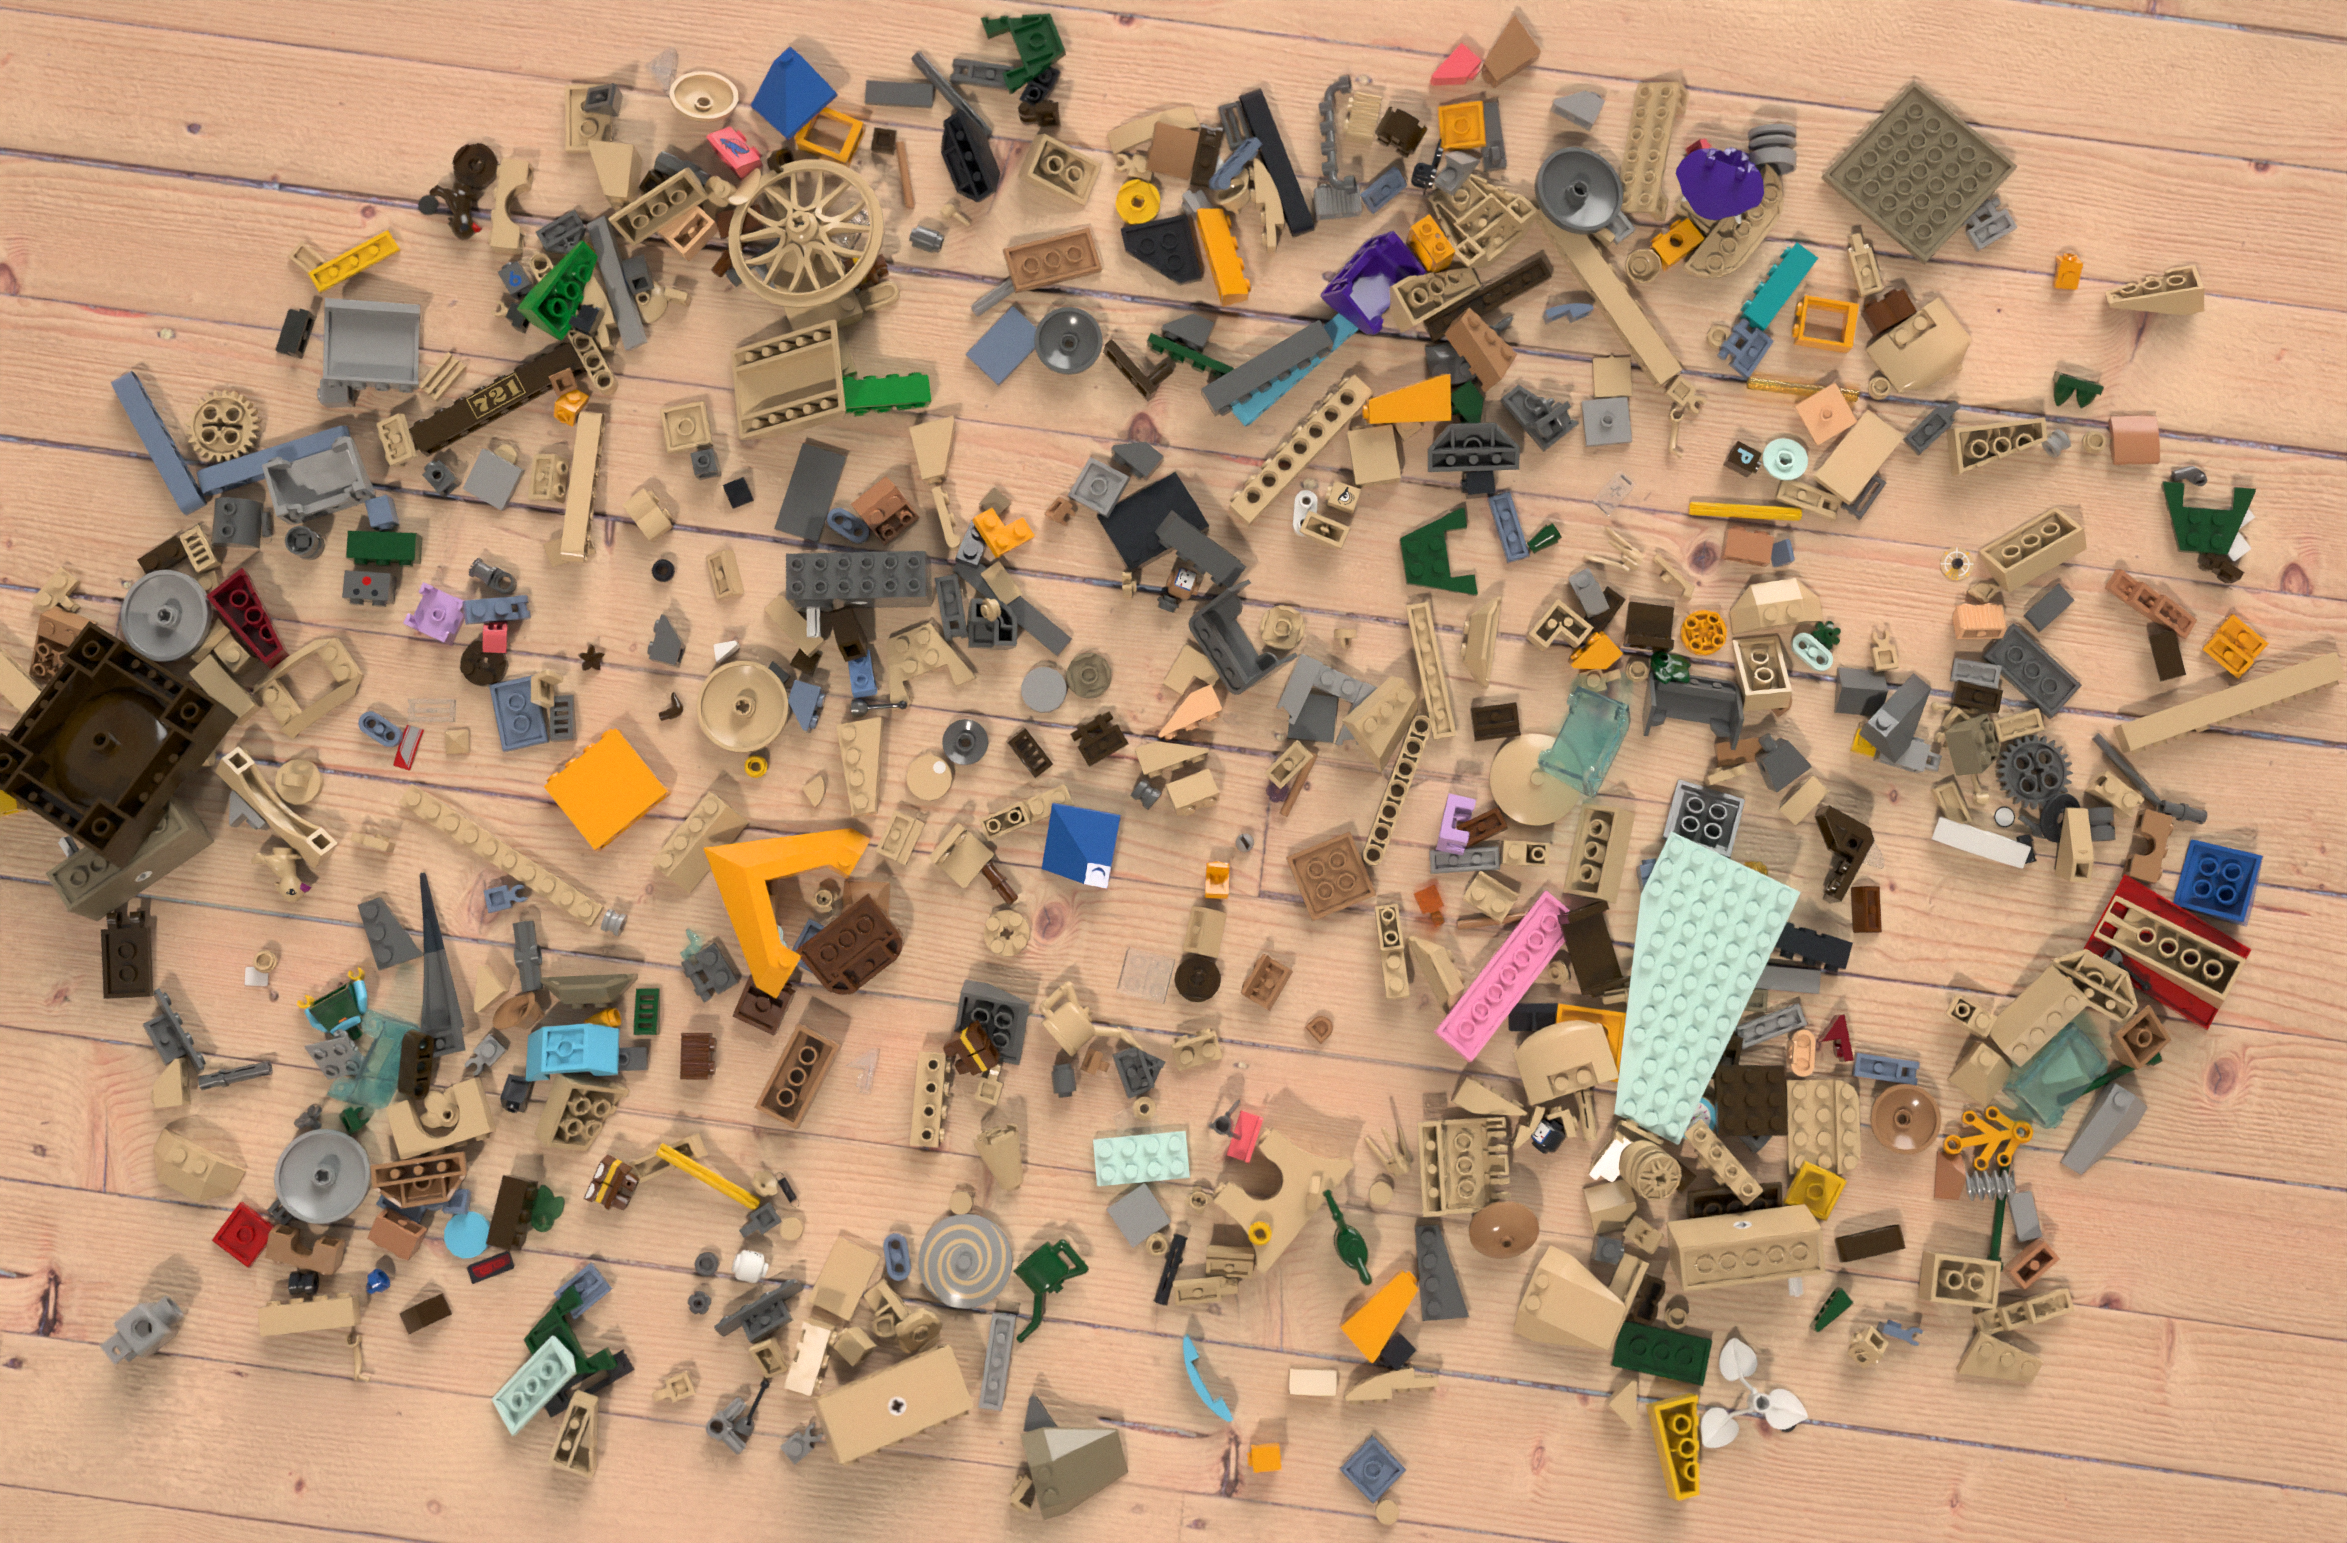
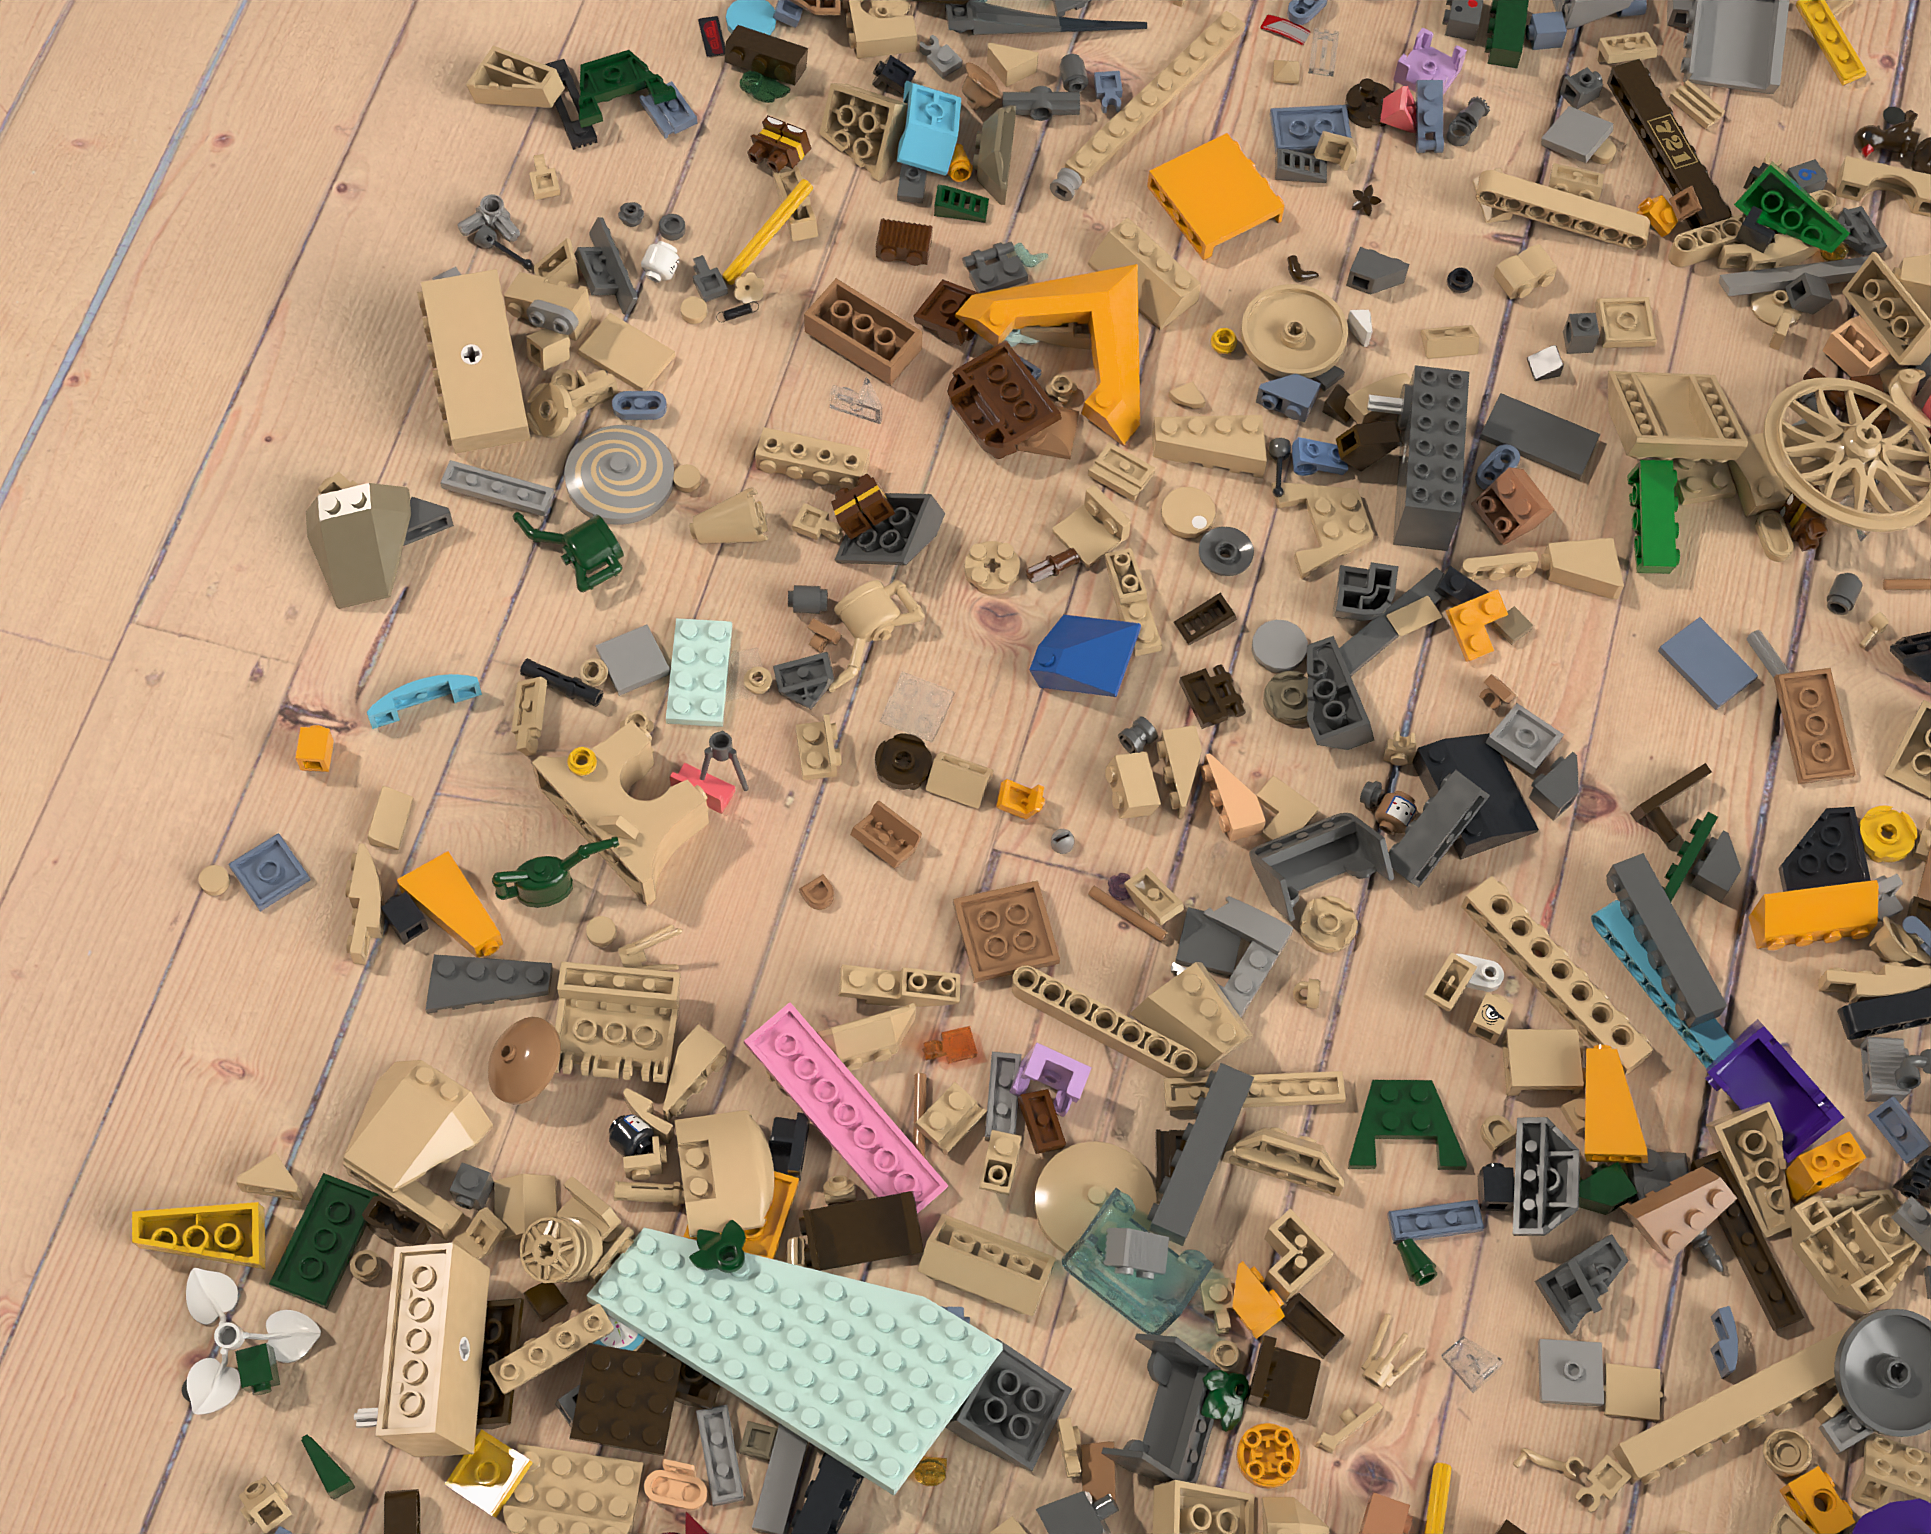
camera: 95 degrees right, 20 degrees down
(490, 931) = (1073, 73): none -> dark grey brick
(534, 1384) = (580, 50): light aqua slope -> none
(836, 1339) = (552, 317): none -> light grey plate
(951, 606) = (1409, 558): dark grey plate -> none
(990, 609) = (1383, 580): tan plate -> none
(1064, 326) = (1713, 711): dark grey dish -> none
(1096, 640) = (1333, 702): none -> dark grey wedge
(1229, 1261) = (557, 737): tan plate -> none
(1431, 487) = (1497, 1132): none -> tan tile
(1494, 704) = (1201, 1153): none -> dark grey brick
(1583, 742) = (1136, 1251): none -> light grey brick
(1588, 593) = (1336, 1306): light grey slope -> none
(1626, 1054) = (717, 1247): none -> dark green plate
(1771, 1377) = (257, 1369): none -> dark green brick

